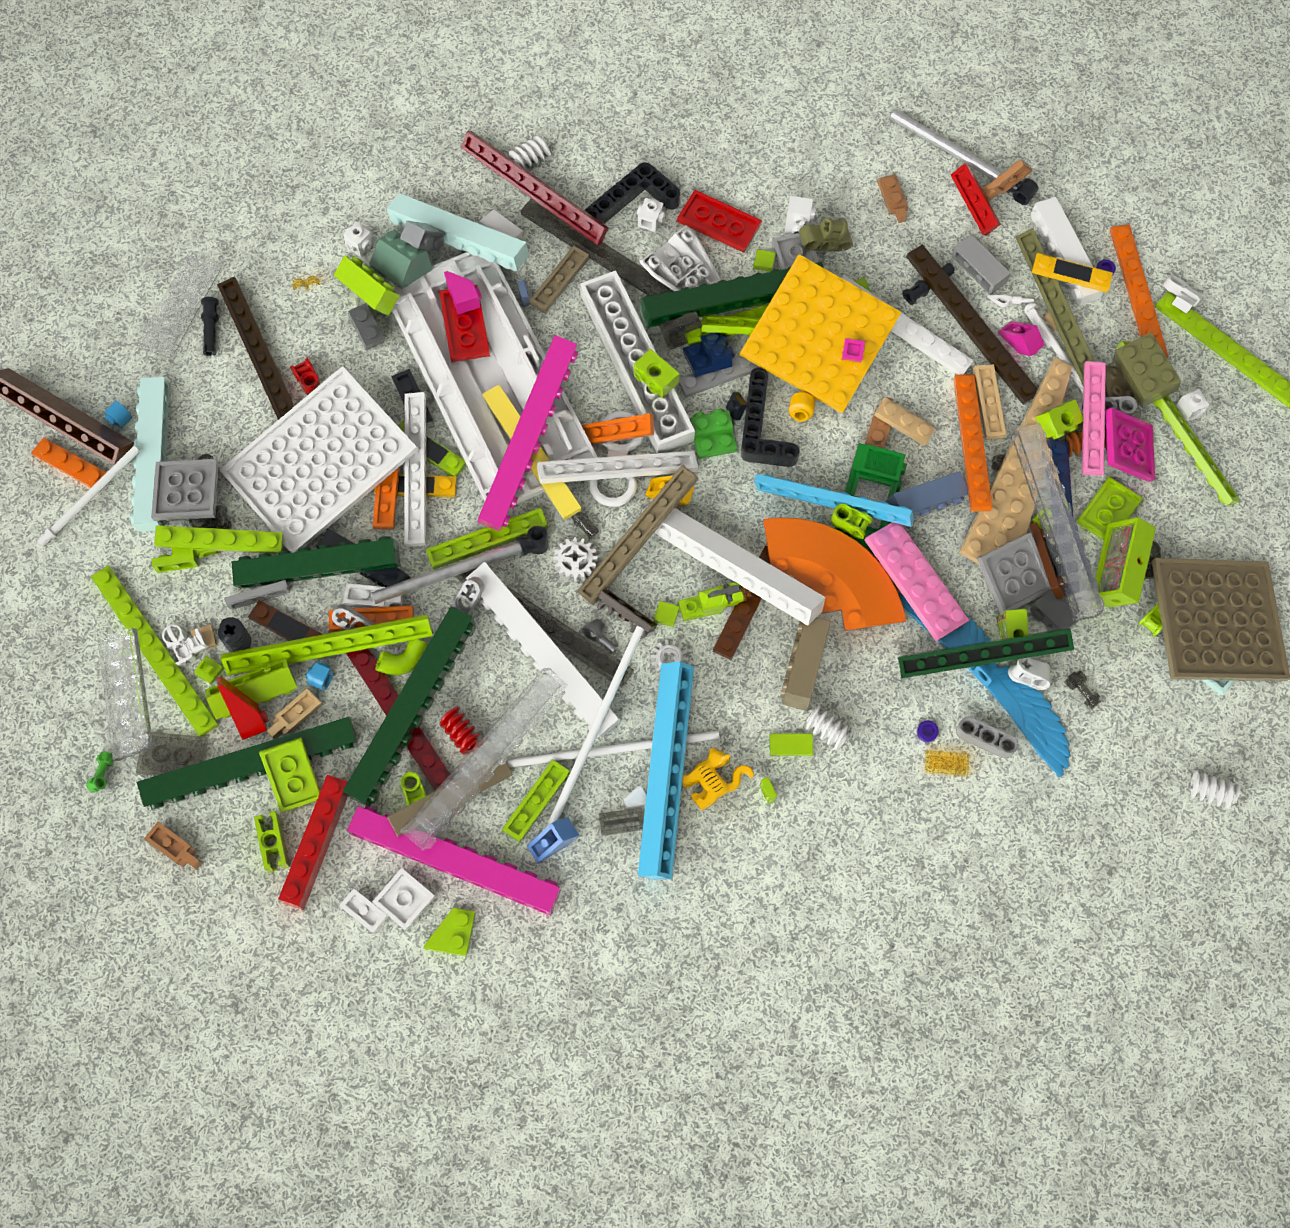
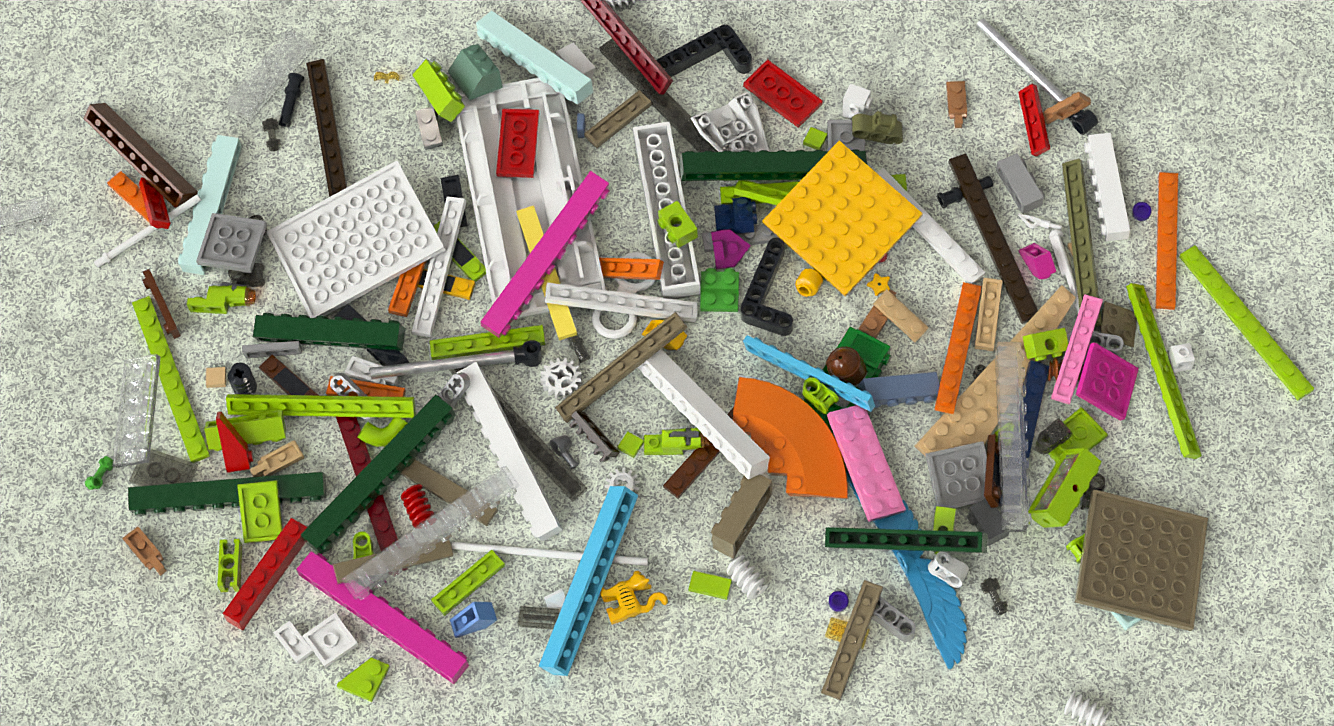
camera: 20 degrees right, 5 degrees down
(90, 467) = (154, 205): none -> red plate
(117, 415) = (189, 164): dark azure plate -> none
(139, 592) = (150, 283): none -> reddish brown plate
(188, 645) = (201, 381): white piece -> none
(195, 357) = (271, 125): none -> clear smoke bar
(208, 670) = (212, 405): lime tile -> none
(218, 539) = (249, 293): lime plate -> none
(306, 375) = (364, 162): red piece -> none
(319, 675) = (308, 432): dark azure plate -> none
(358, 239) = (444, 45): white brick -> none
(422, 236) = (499, 55): brick -> none
(463, 292) = (522, 115): dark pink slope -> none
(476, 702) = (441, 486): none -> dark tan tile
(596, 725) = (538, 525): white piece -> none
(650, 214) = (718, 75): white brick -> none
(675, 330) = (709, 188): clear smoke plate -> none
(710, 388) = (728, 248): none -> magenta plate
(736, 406) = (747, 269): black plate -> none
(768, 790) = (676, 619): lime tile -> none
(853, 350) = (865, 239): dark pink plate -> none
(871, 399) = (874, 284): none -> yellow plate
(874, 487) = (849, 368): none -> reddish brown helmet
(957, 770) = (852, 640): none -> dark tan tile
(1072, 272) = (1102, 208): yellow plate -> none
(1093, 512) = (1052, 437): none -> clear smoke piece
(1146, 369) = (1142, 314): olive brick -> none
(1185, 294) = (1210, 250): white piece -> none

